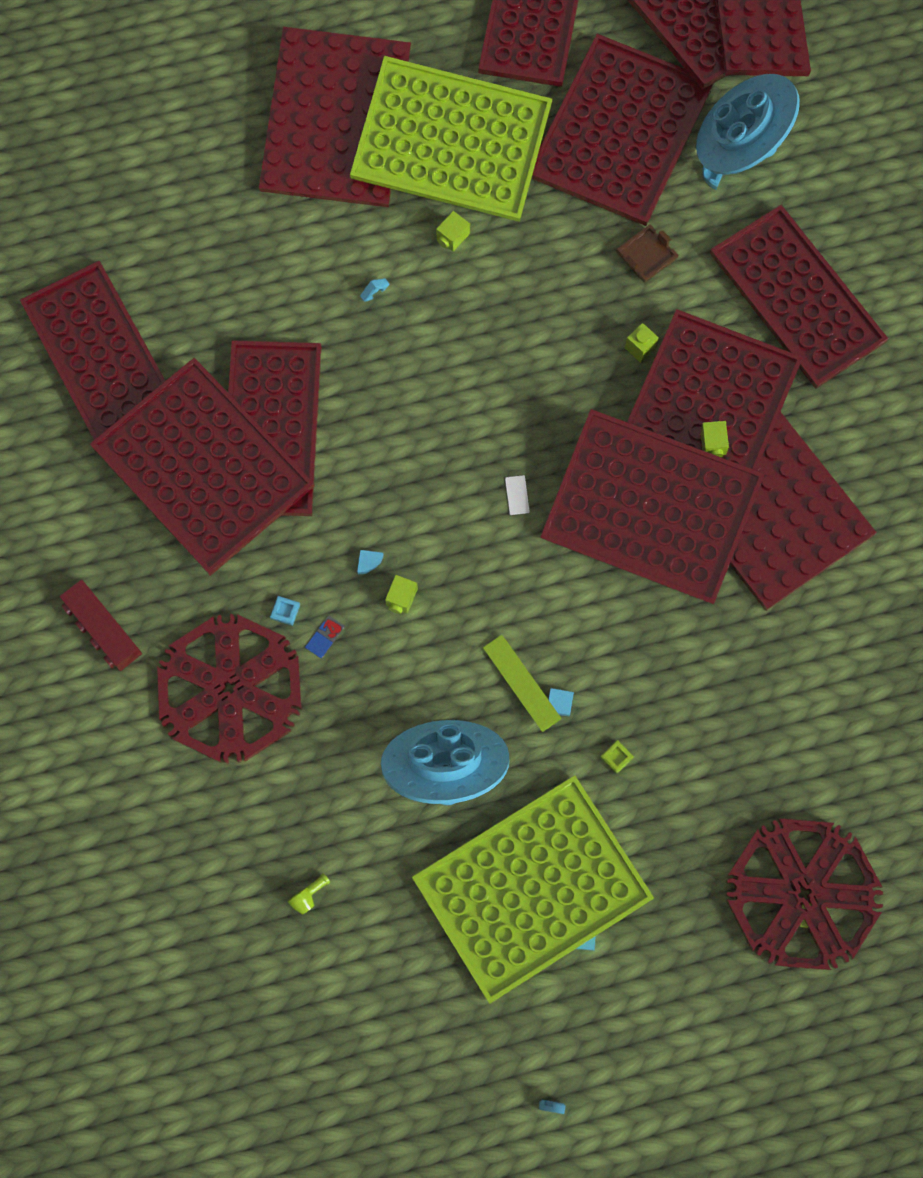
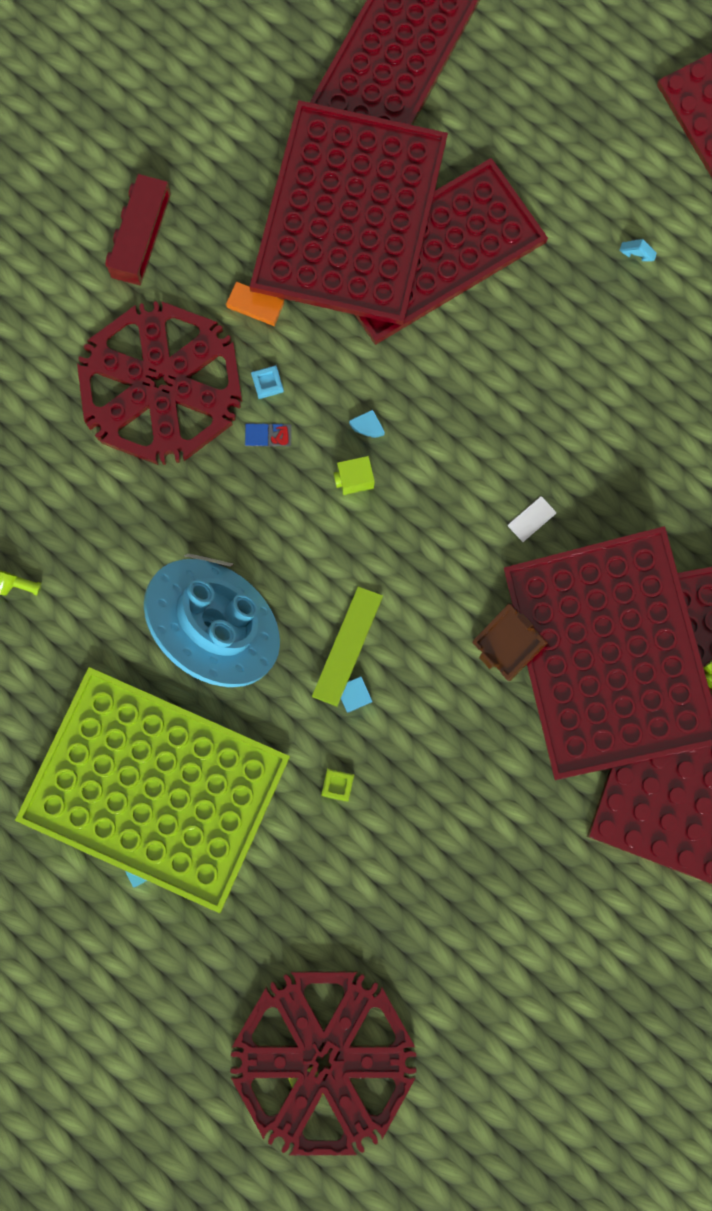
camera: 50 degrees right, 5 degrees up
(219, 581) = (255, 305): none -> orange tile
(390, 739) = (209, 559): none -> white sticker
(597, 569) = (509, 642): none -> reddish brown piece

